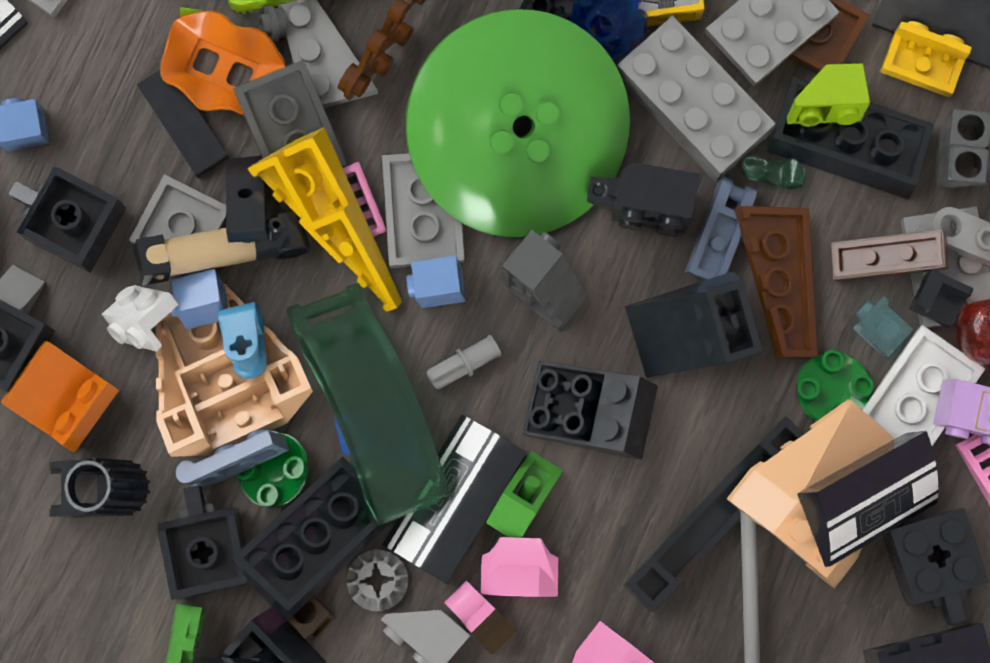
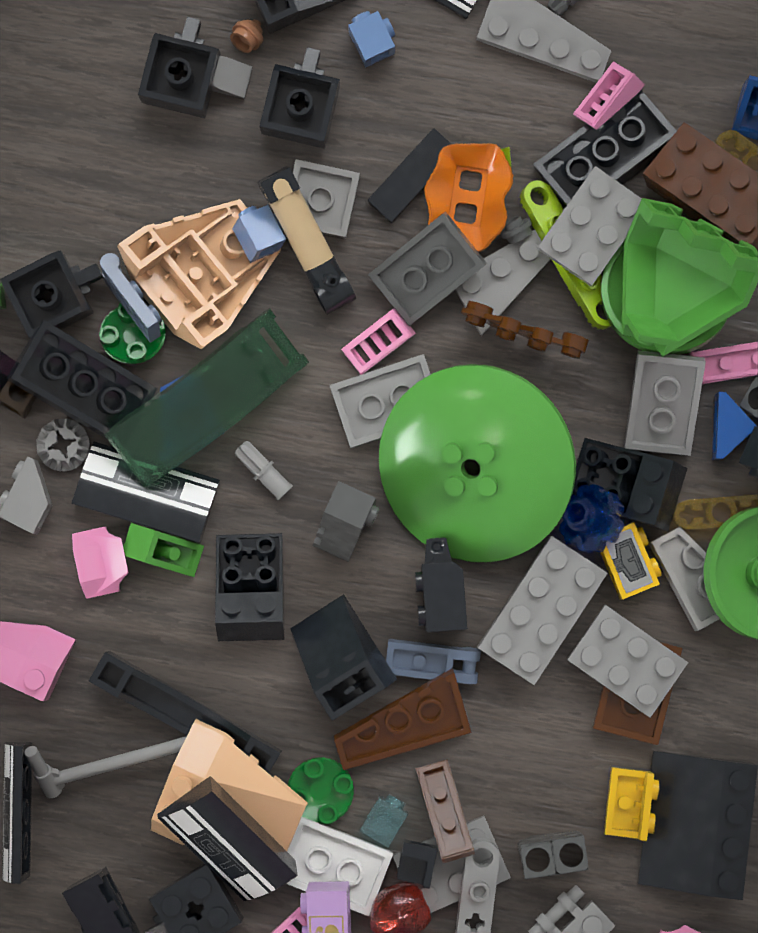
camera: 75 degrees right, 5 degrees up
(59, 396) = (147, 140): orange bracket -> none
(120, 487) = (81, 211): black piece -> none
(136, 313) = (232, 185): white bracket -> none
(244, 202) = (352, 248): black tile -> none
(244, 339) = (232, 279): dark azure piece -> none
(317, 189) = (379, 304): yellow wedge -> none
(436, 282) = (324, 429): medium blue brick -> none
(480, 617) = (52, 539): leg -> none
(785, 173) = (496, 695): clear green piece -> none
(833, 95) = (572, 729): lime slope -> none
(878, 151) = (545, 755): black slope -> none

